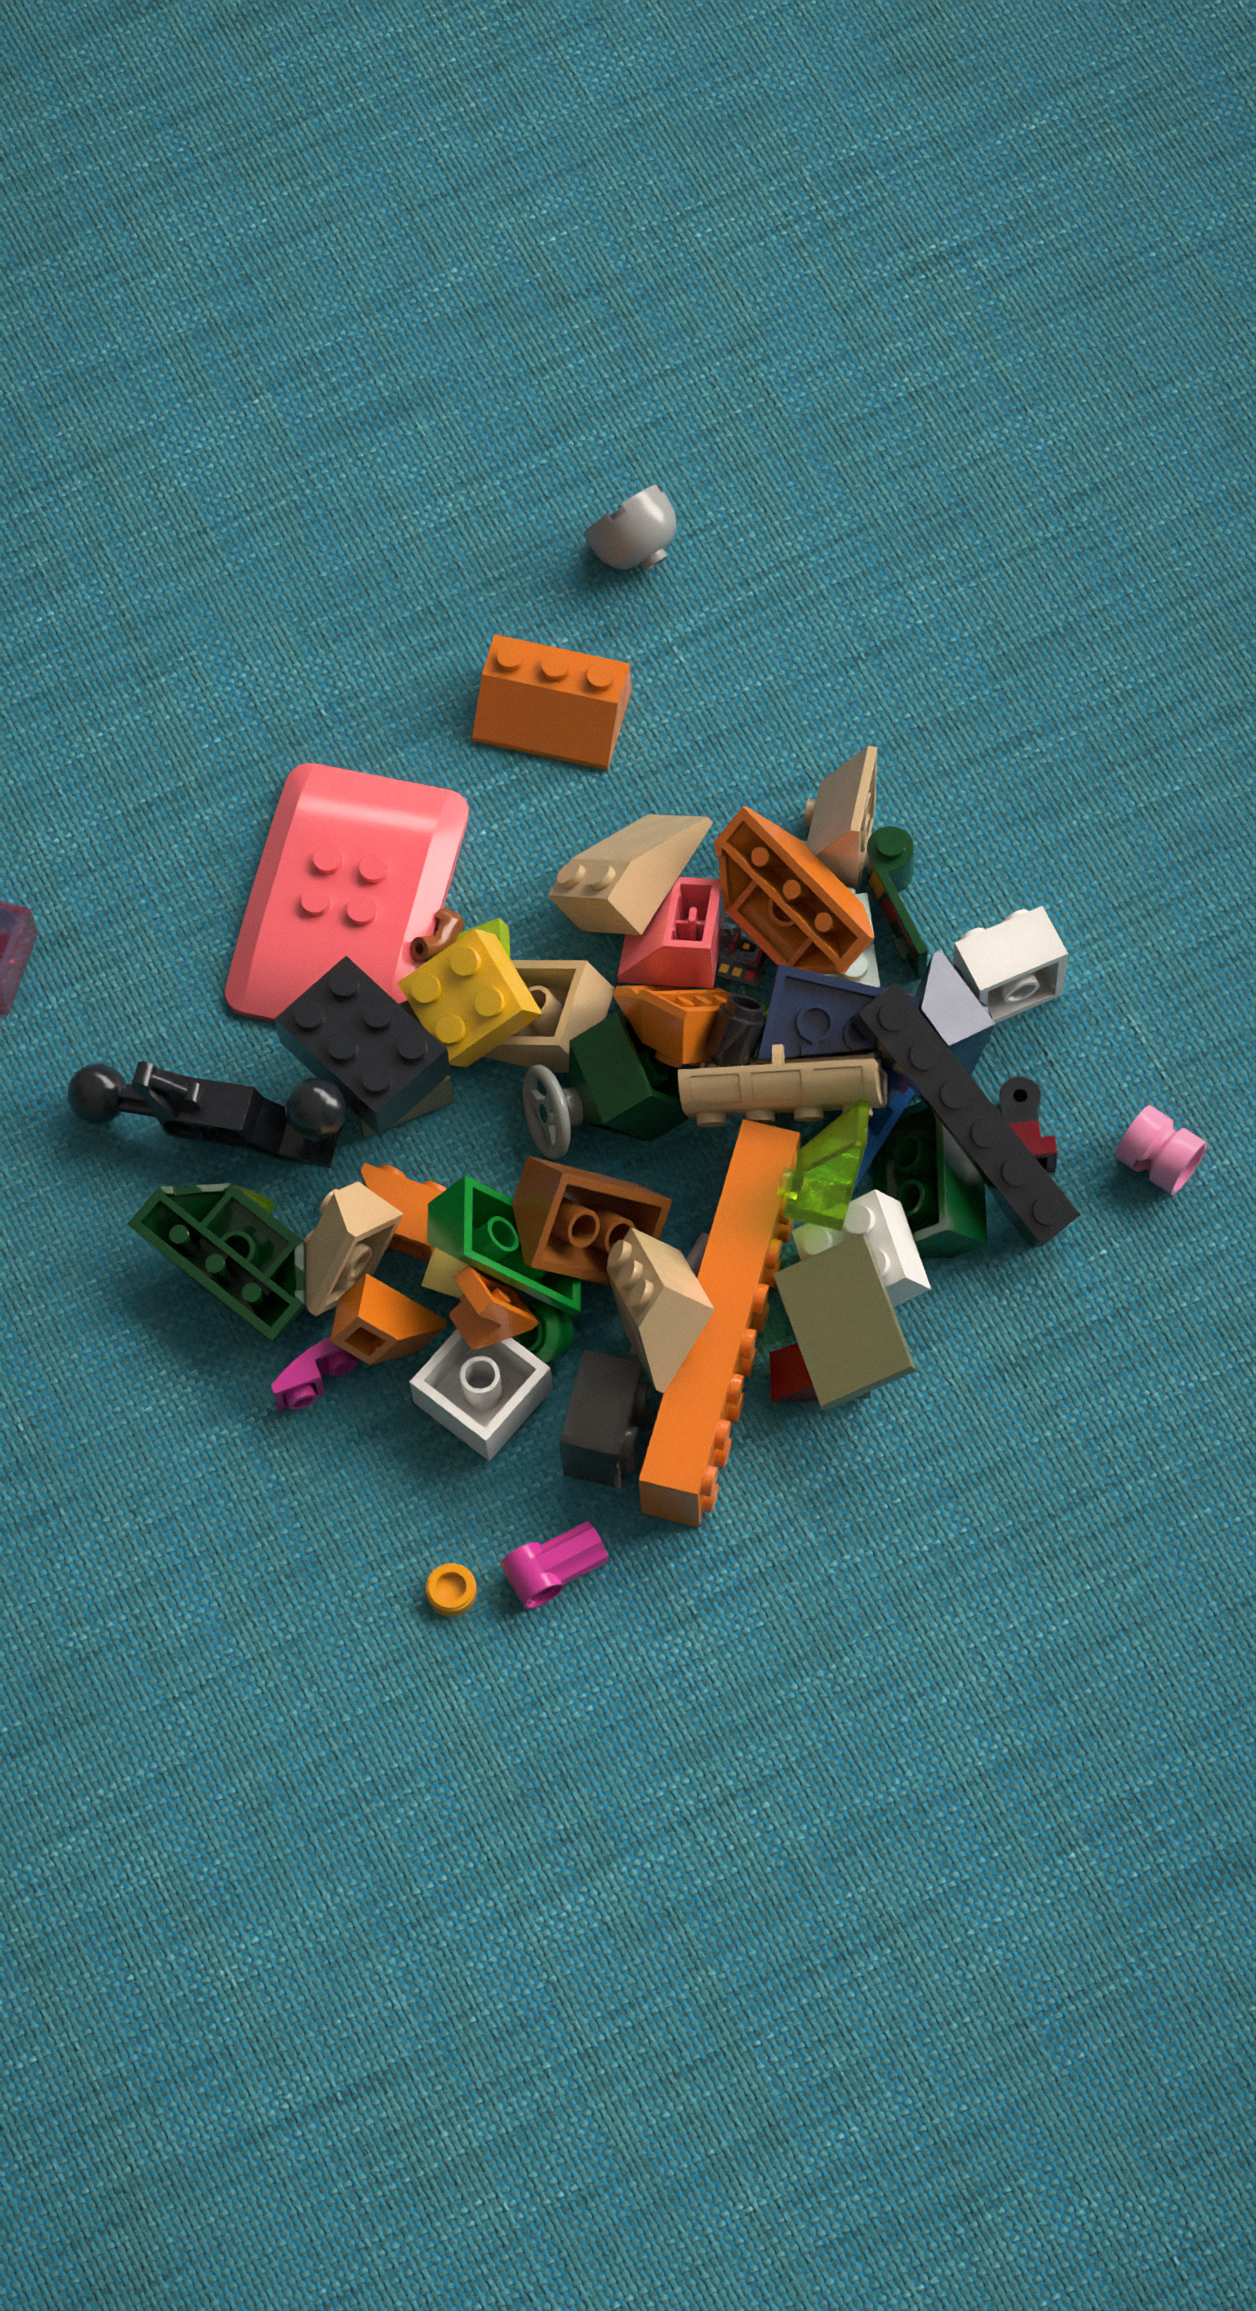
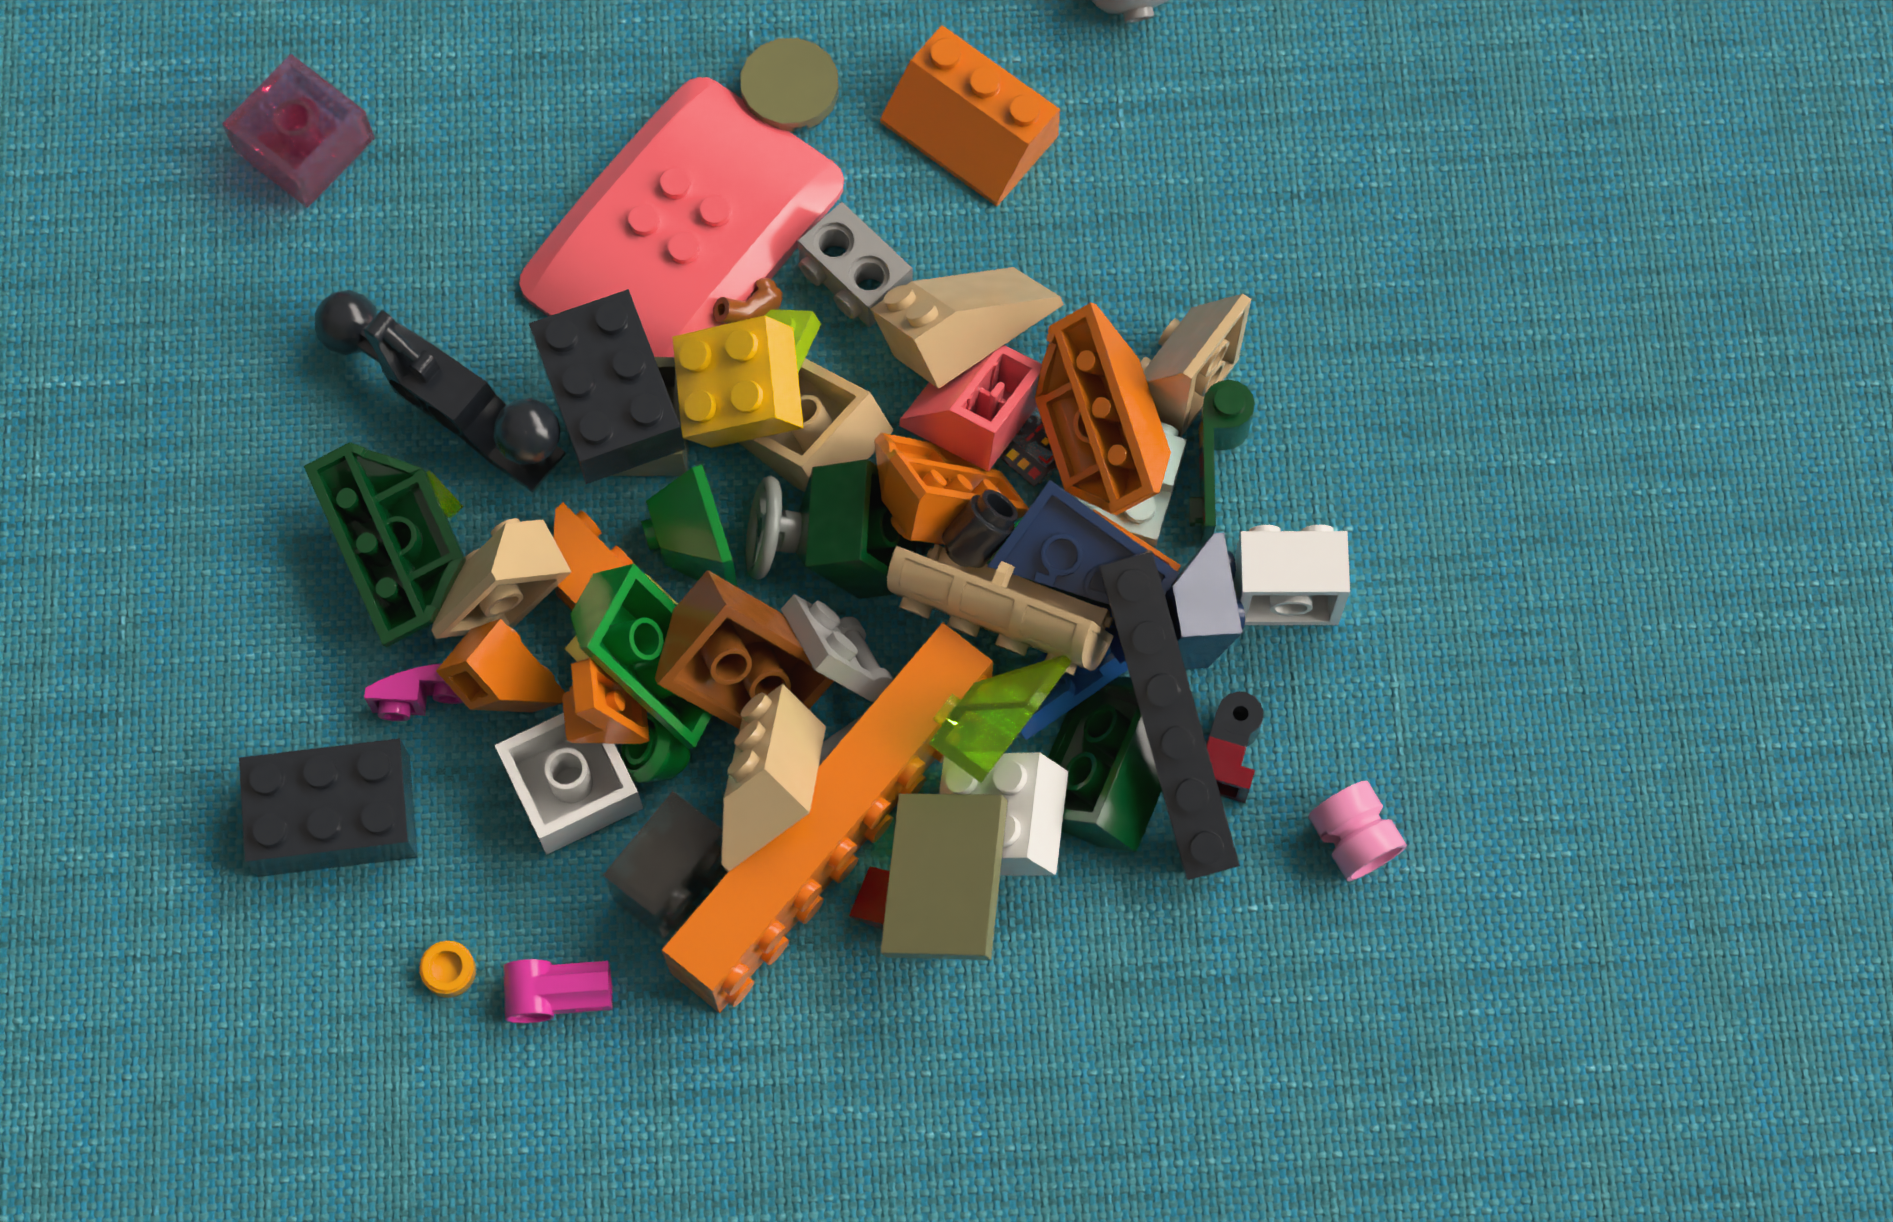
camera: 20 degrees right, 5 degrees up
(285, 1499) = (327, 807): none -> black brick
(380, 739) = (790, 83): none -> olive tile
(484, 1138) = (689, 528): none -> green slope
(519, 857) = (864, 259): none -> light grey brick
(659, 1181) = (836, 647): none -> light grey plate

